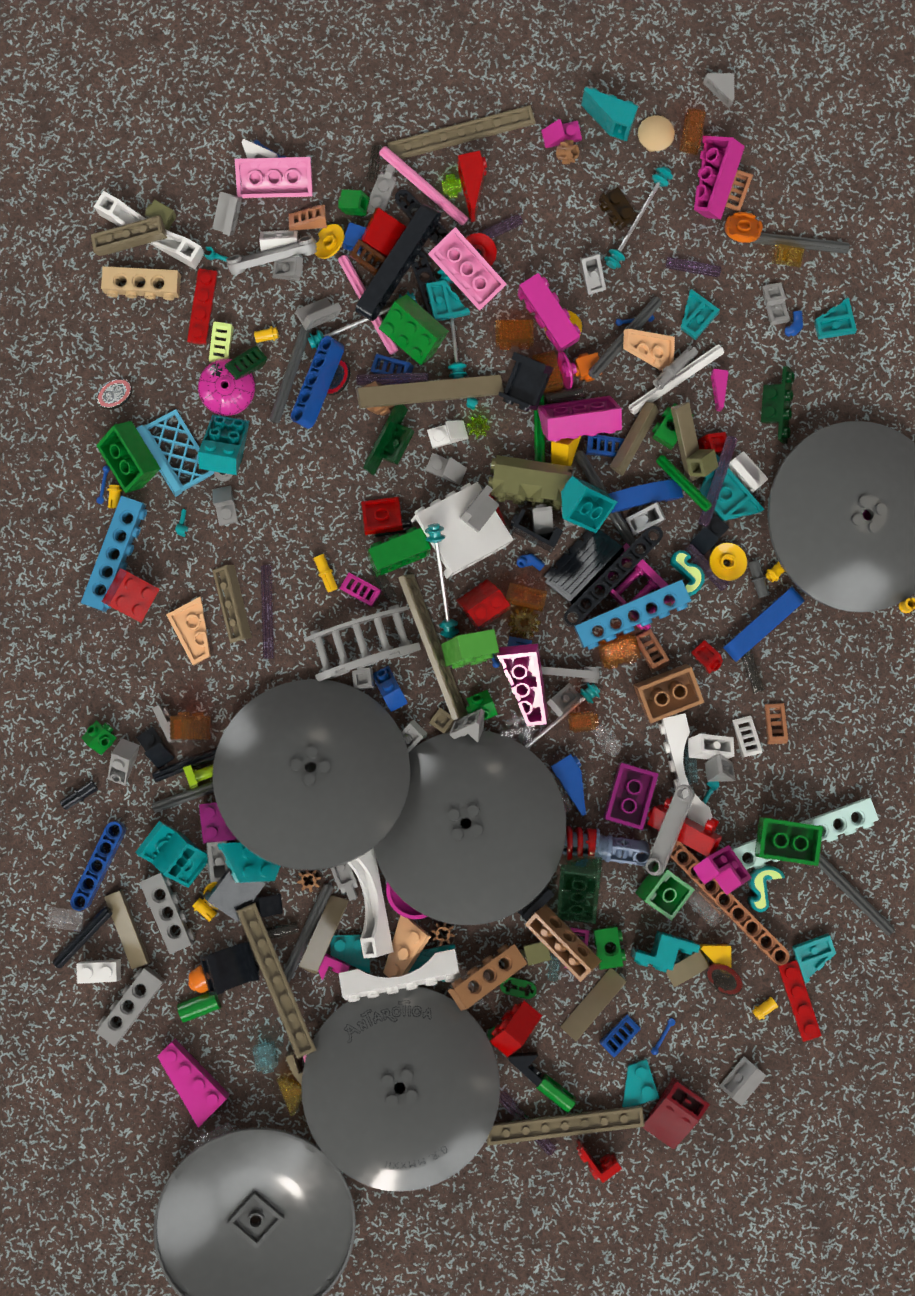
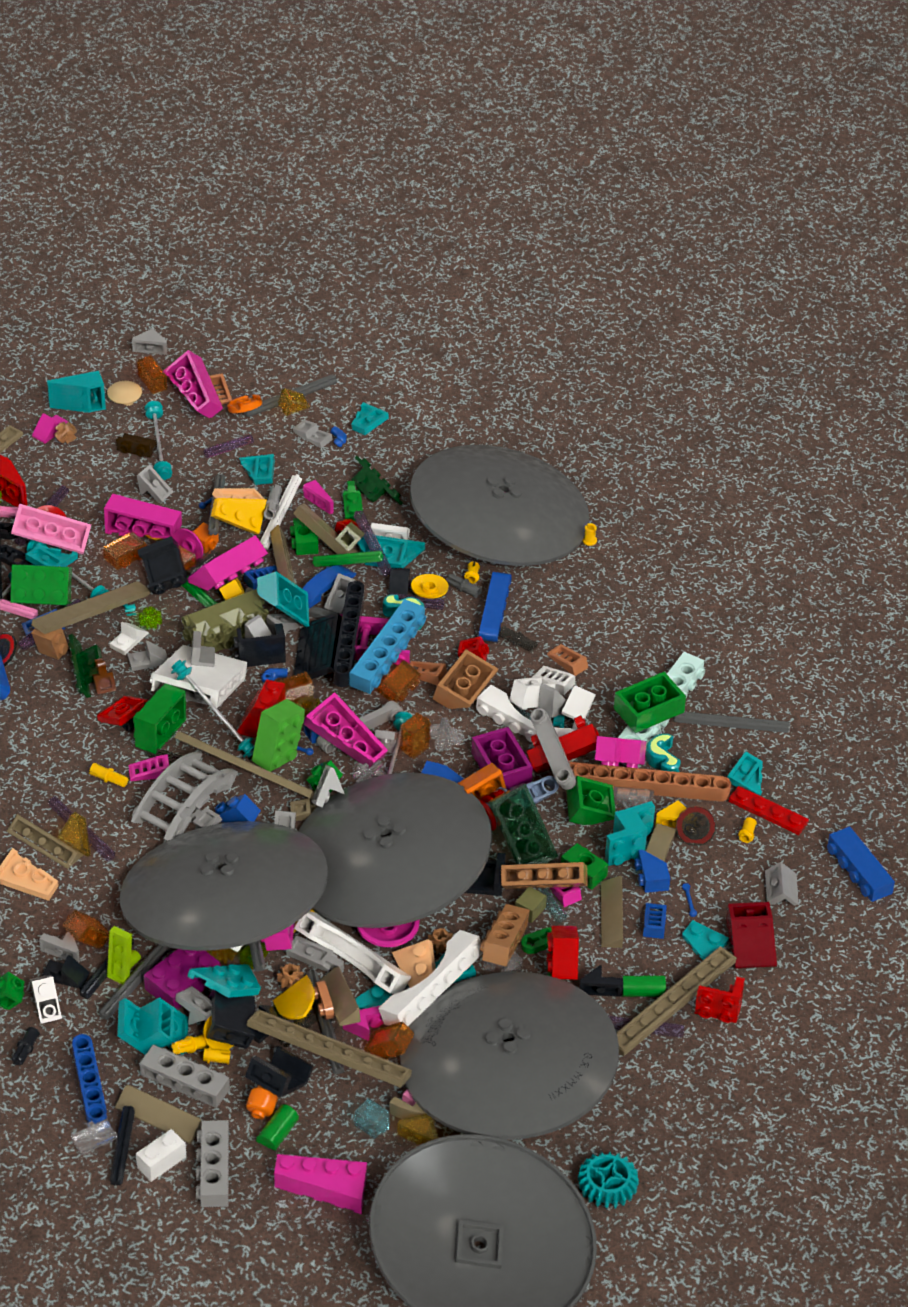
camera: 40 degrees left, 40 degrees down
(187, 889) = (189, 1044): none -> yellow axle
(252, 623) = (76, 834): none -> clear yellow slope
(290, 912) = (296, 1000): none -> yellow shield
(306, 935) = (325, 1005): none -> nougat plate
(326, 1002) = (390, 1041): none -> clear orange brick
(380, 1242) = (605, 1169): none -> teal gear
(390, 470) = (104, 679): none -> reddish brown plate
(586, 821) = (484, 781): none -> orange slope
(632, 367) = (241, 513): none -> yellow wing
(655, 996) = (654, 873): none -> blue slope
(737, 787) = (578, 704): none -> white panel
(743, 414) = (351, 500): none -> green hinge
(820, 1112) = (860, 864): none -> blue brick

